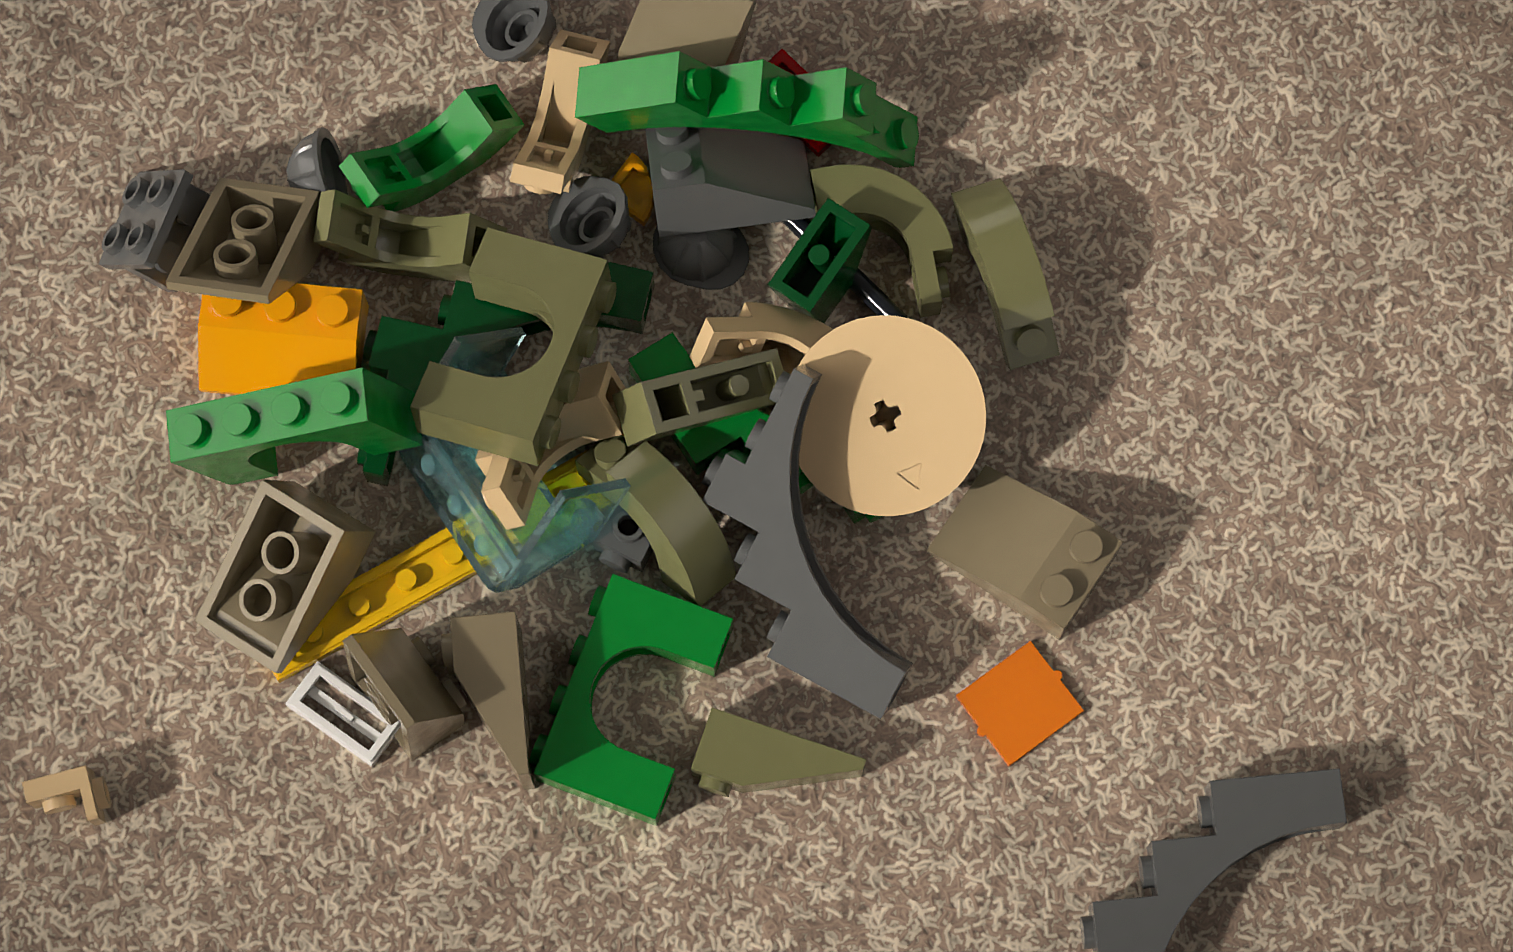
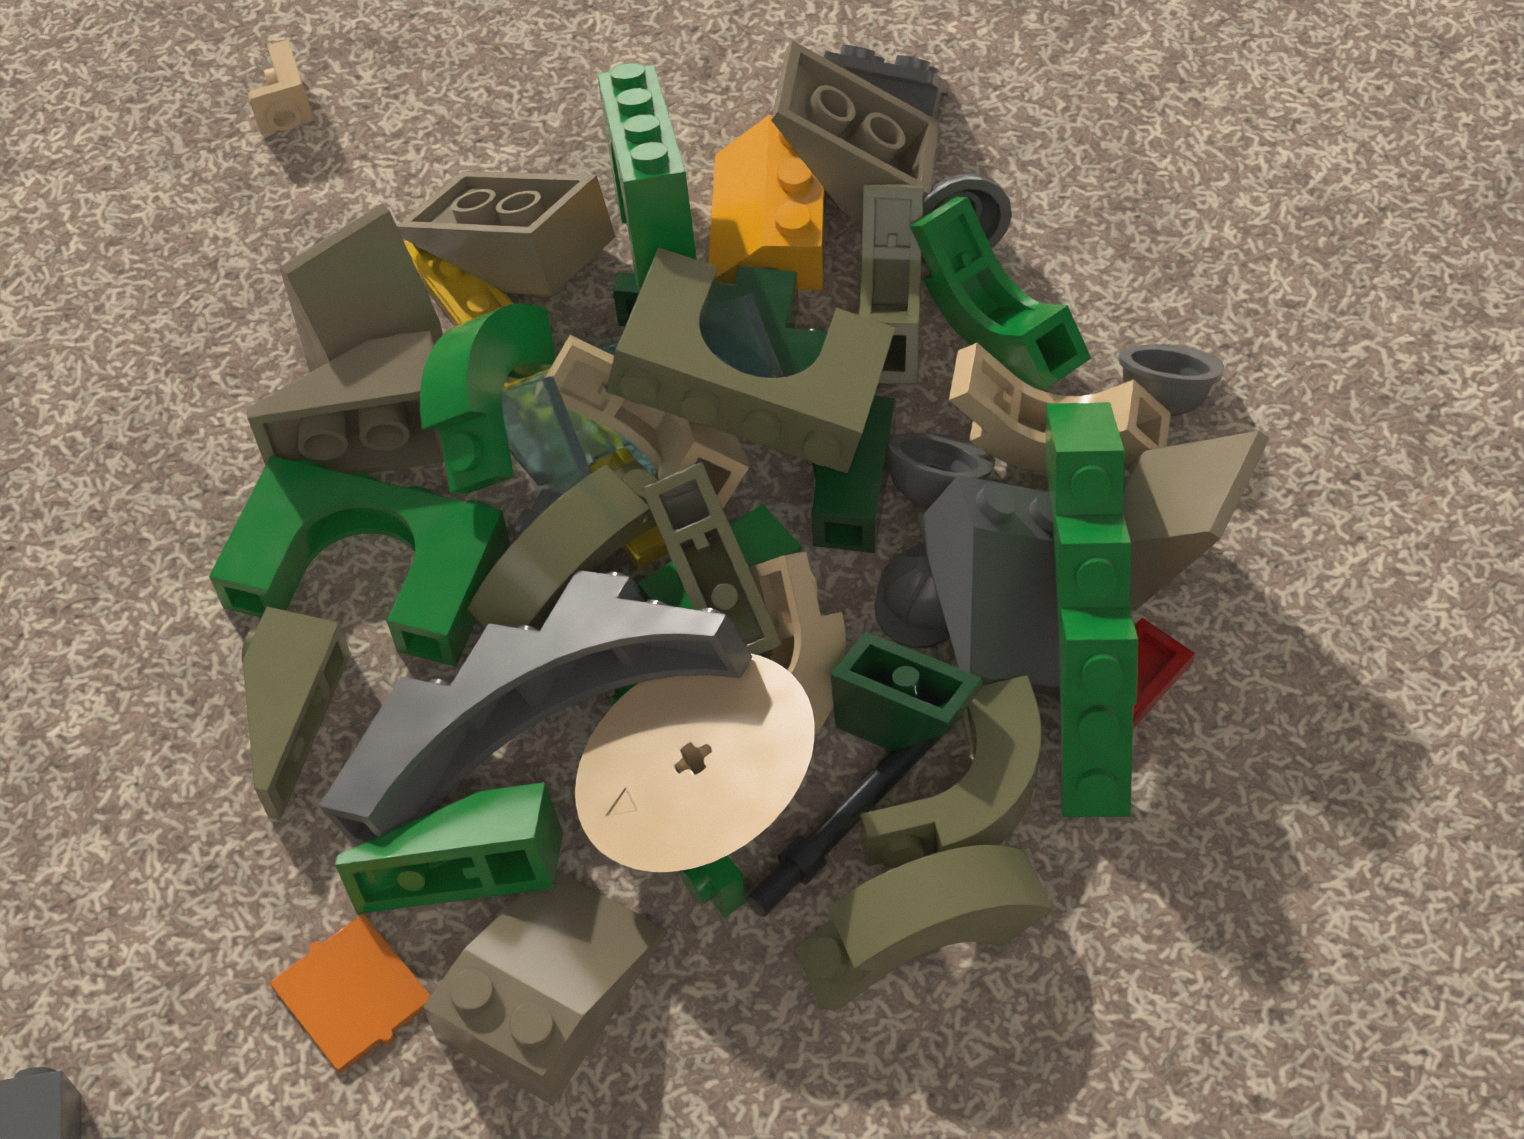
camera: 90 degrees right, 20 degrees down
(505, 581) = (466, 384): none -> green arch
(920, 601) = (466, 851): none -> green slope

